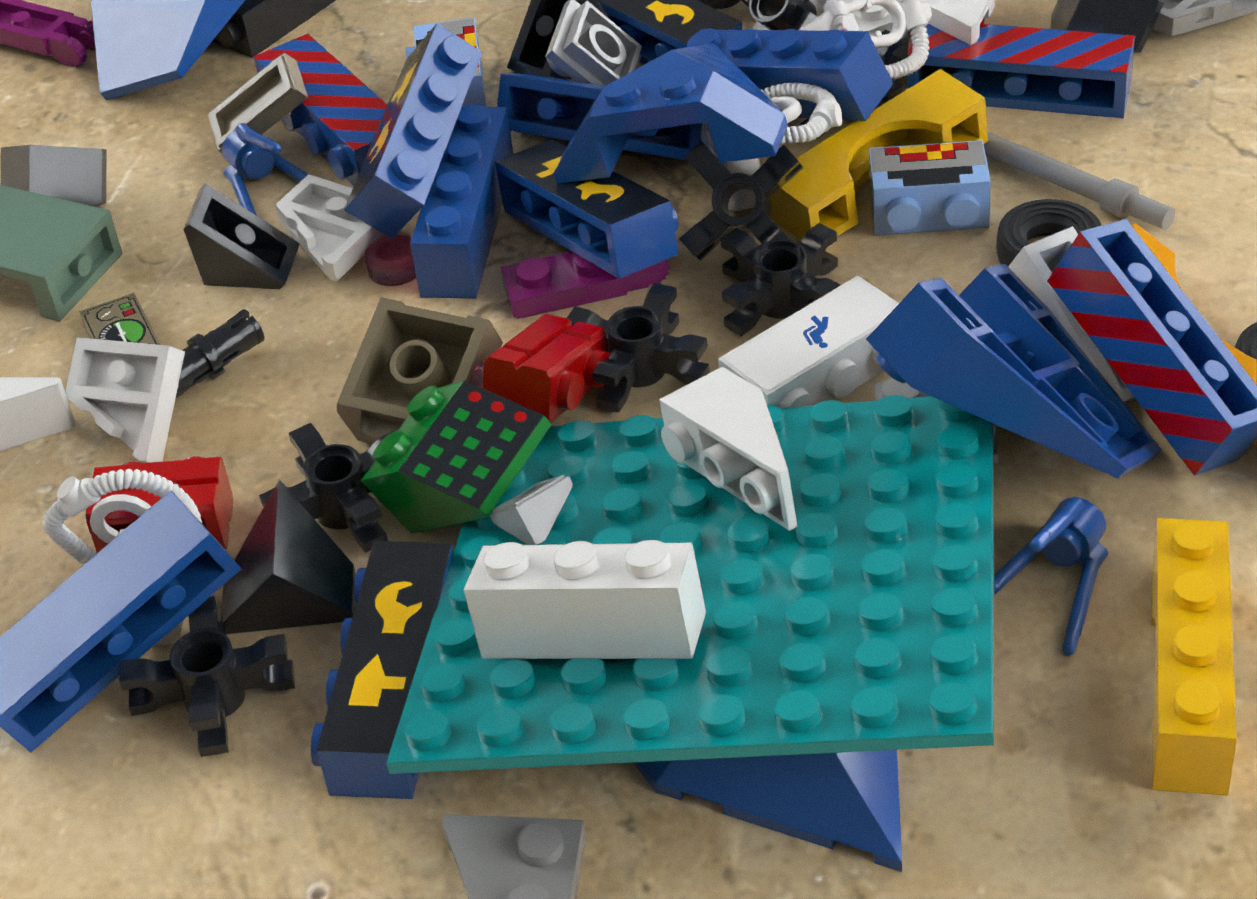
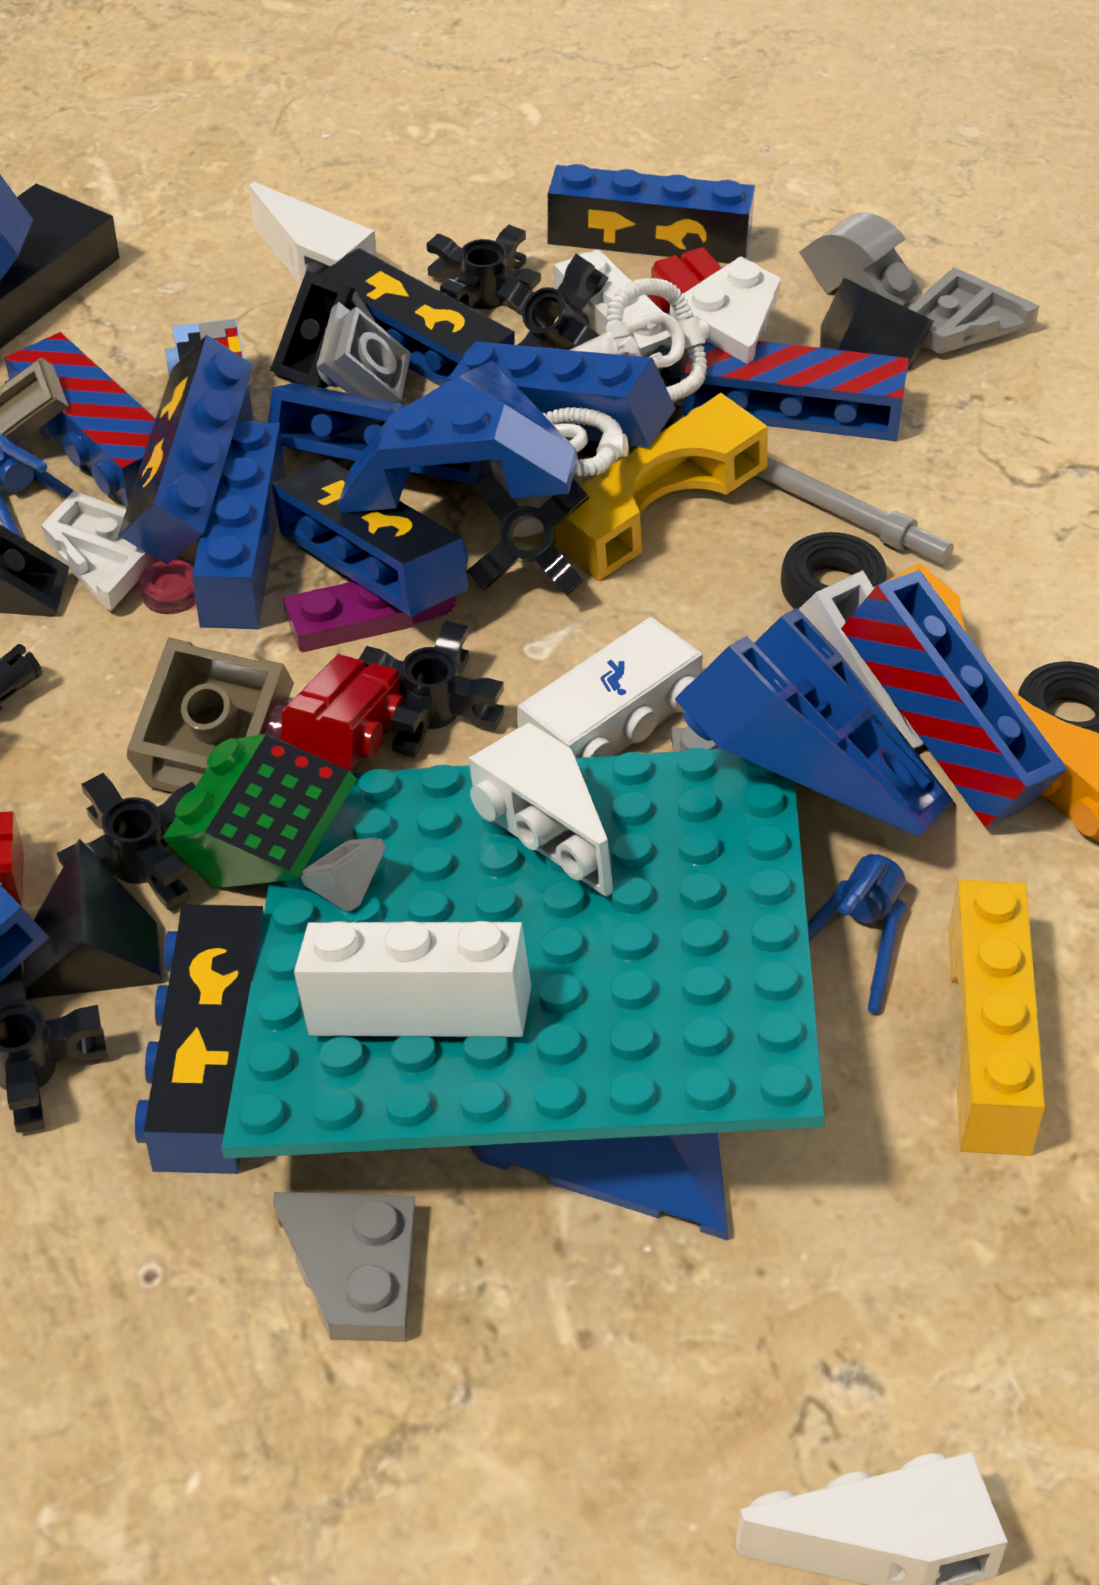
camera: 10 degrees left, 5 degrees up
(777, 275) = (567, 612): black pin -> none
(929, 187) = (712, 517): light blue brick -> none

